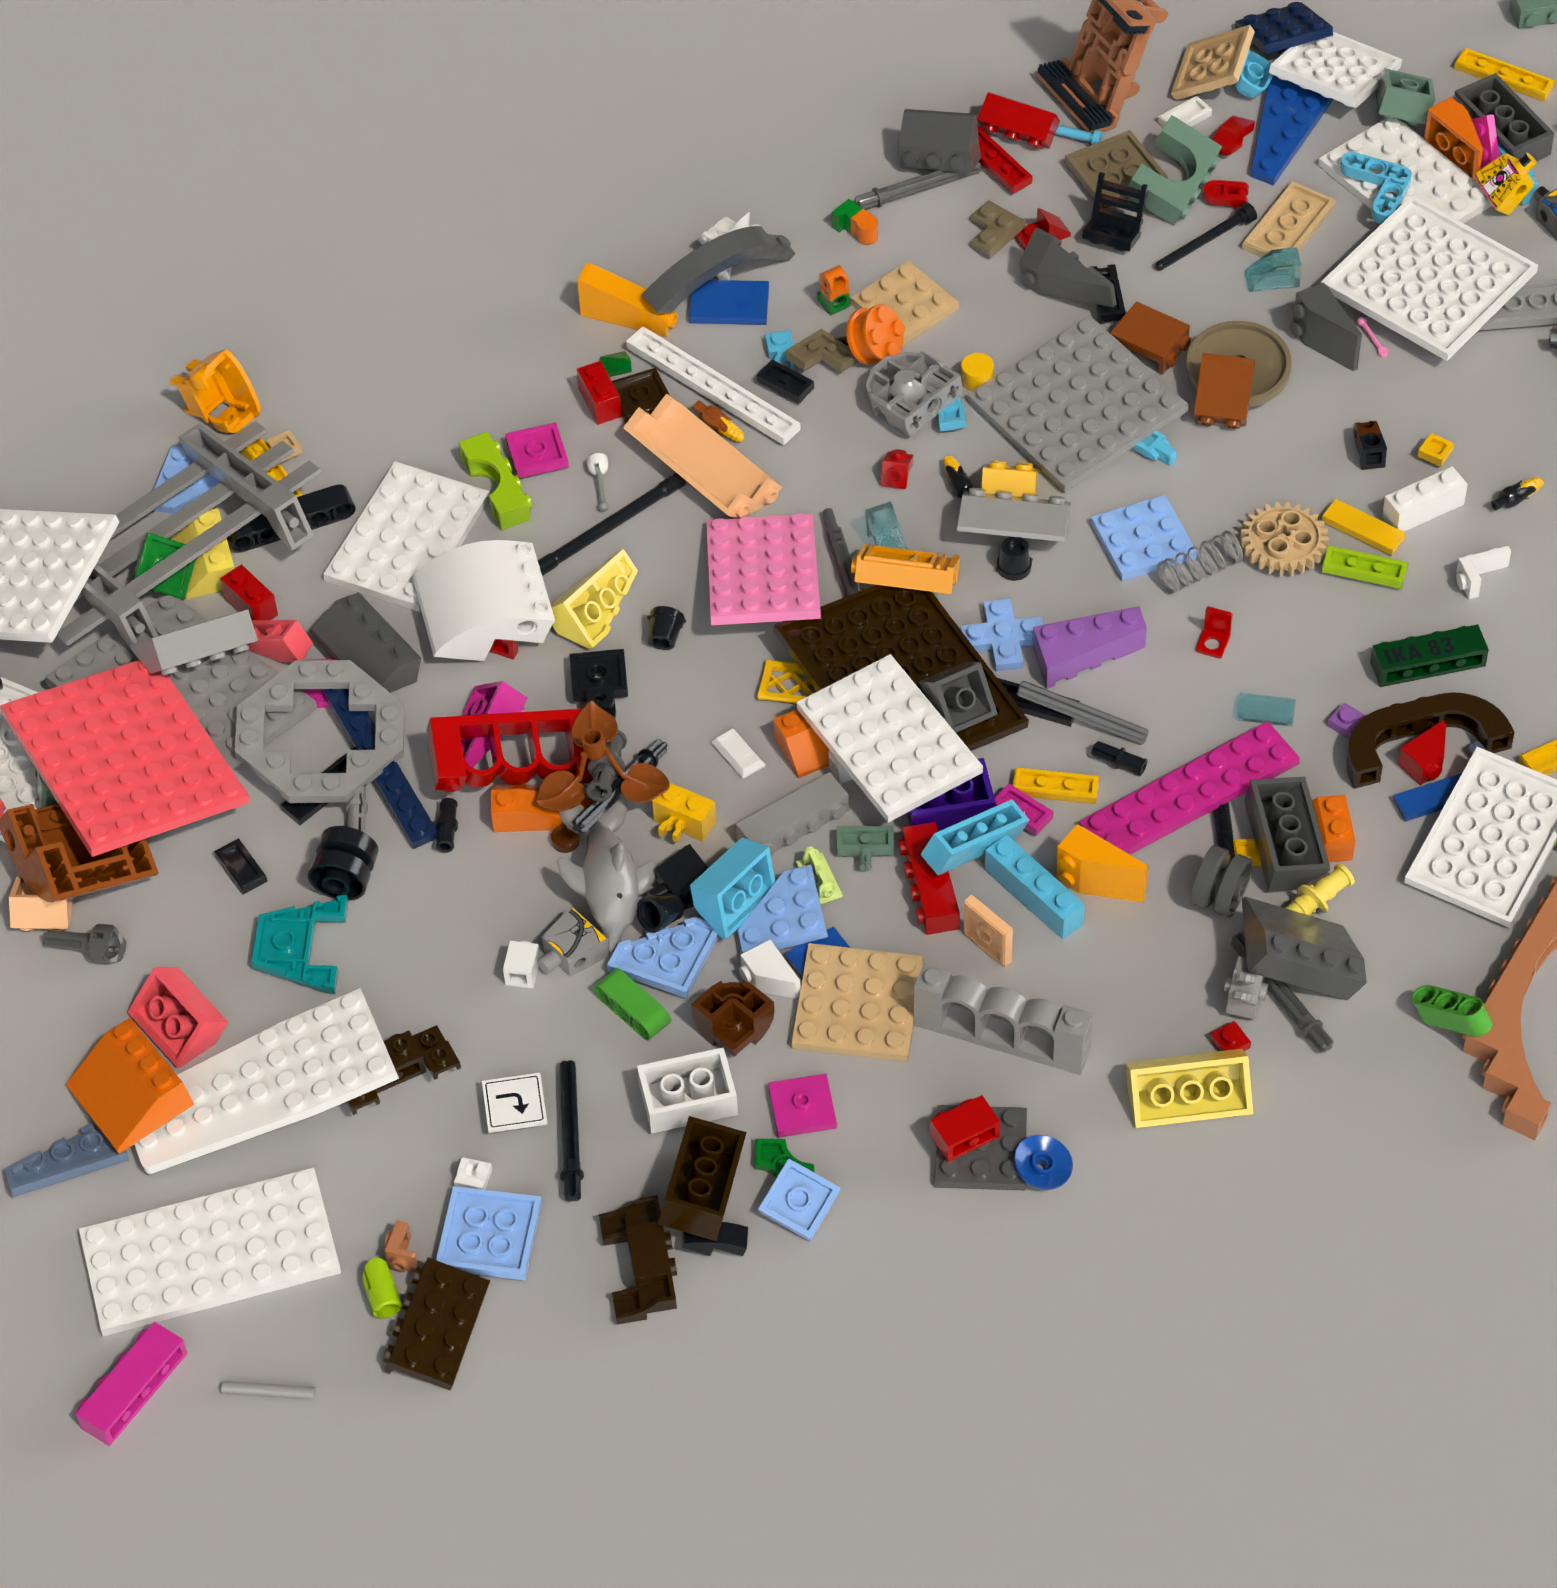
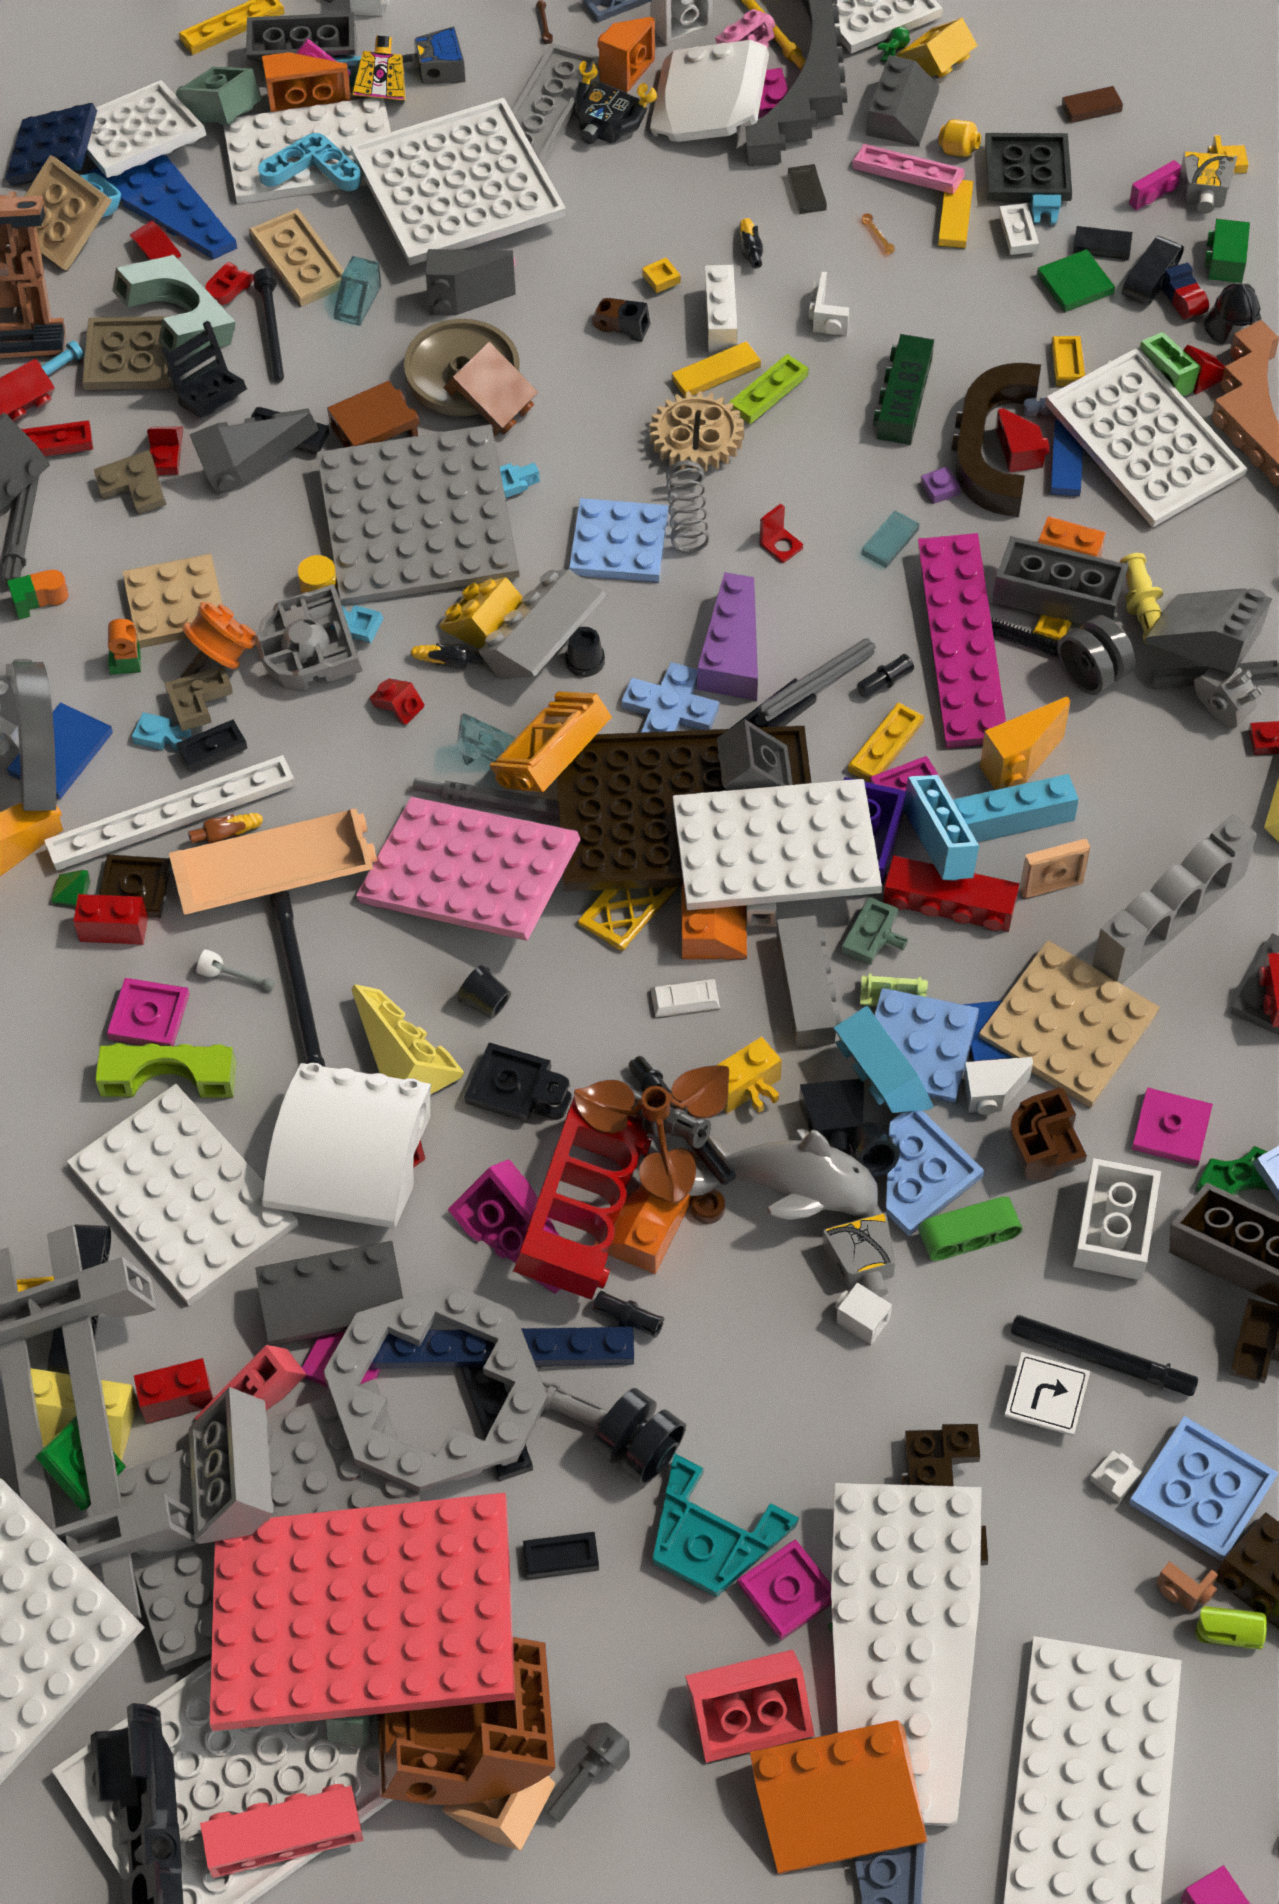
camera: 65 degrees left, 5 degrees up
(275, 1001) = (787, 1589): none -> dark pink plate
(1189, 112) = (96, 272): white tile -> none

